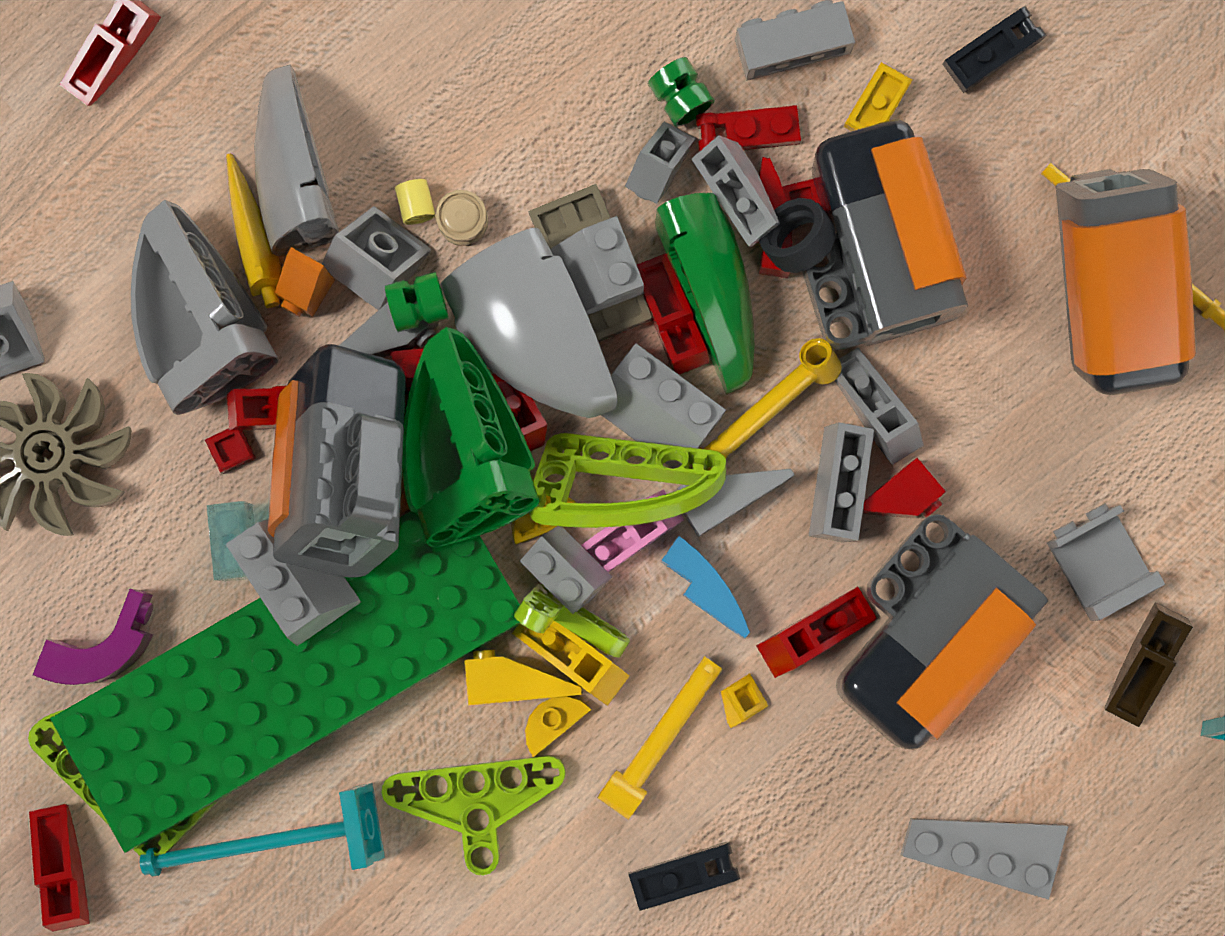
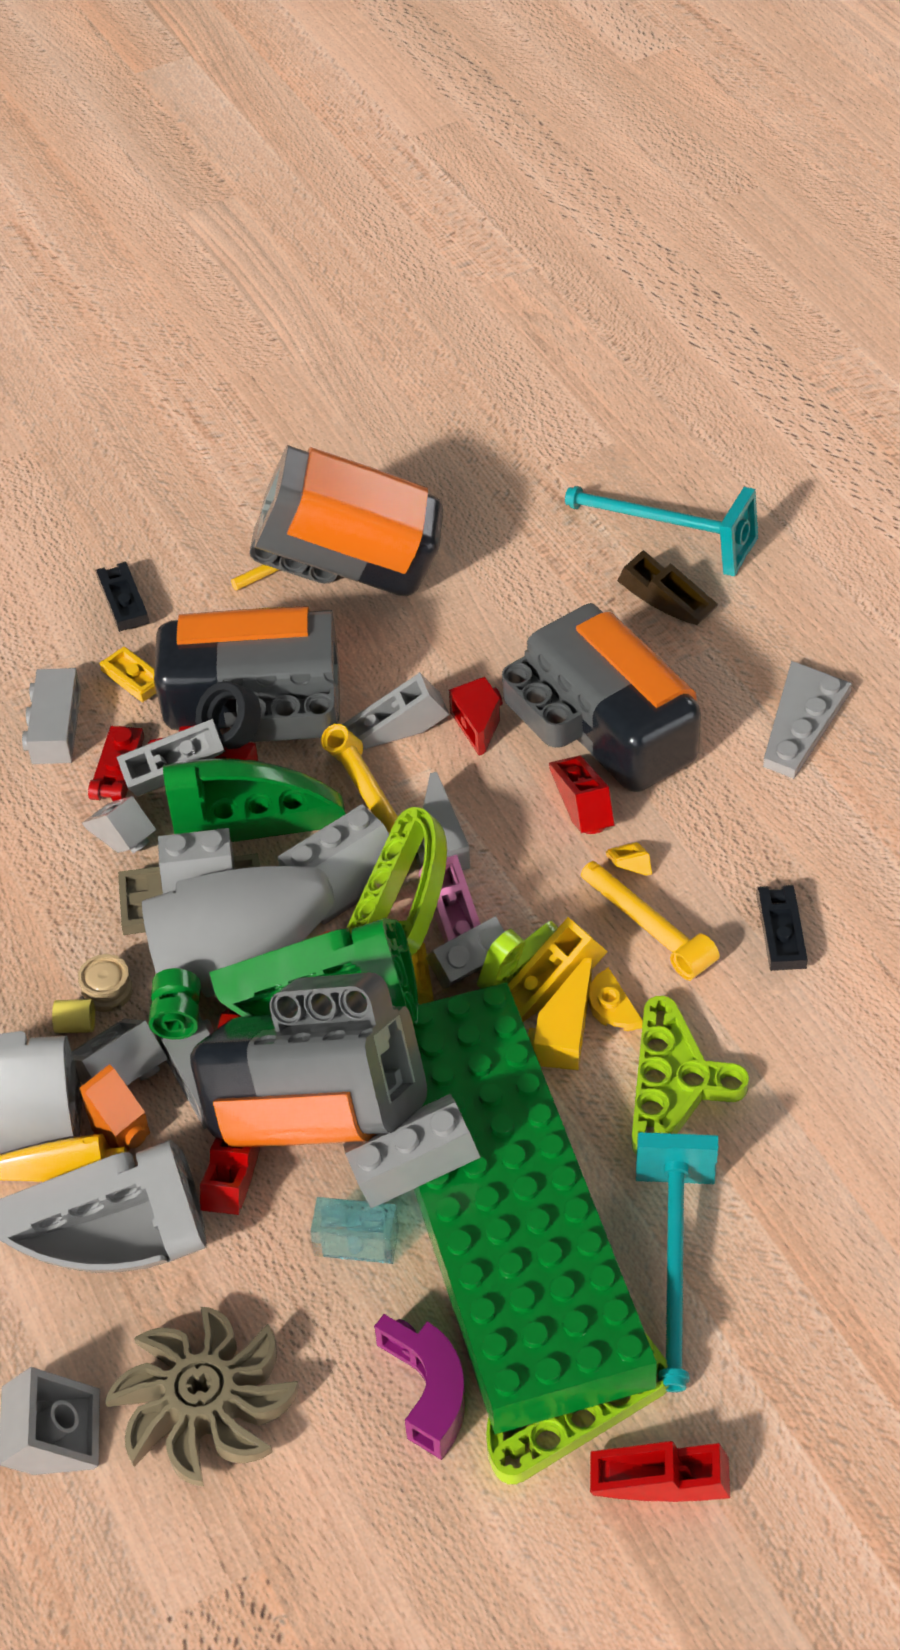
camera: 75 degrees left, 35 degrees down
(230, 449) = (257, 1226): red tile -> none
(672, 315) = (268, 837): red slope -> none
(691, 98) = (63, 796): green wheel -> none
(706, 587) = (517, 860): dark azure slope -> none
(841, 482) = (454, 745): light grey brick -> none
(1102, 563) = (559, 601): light grey panel -> none

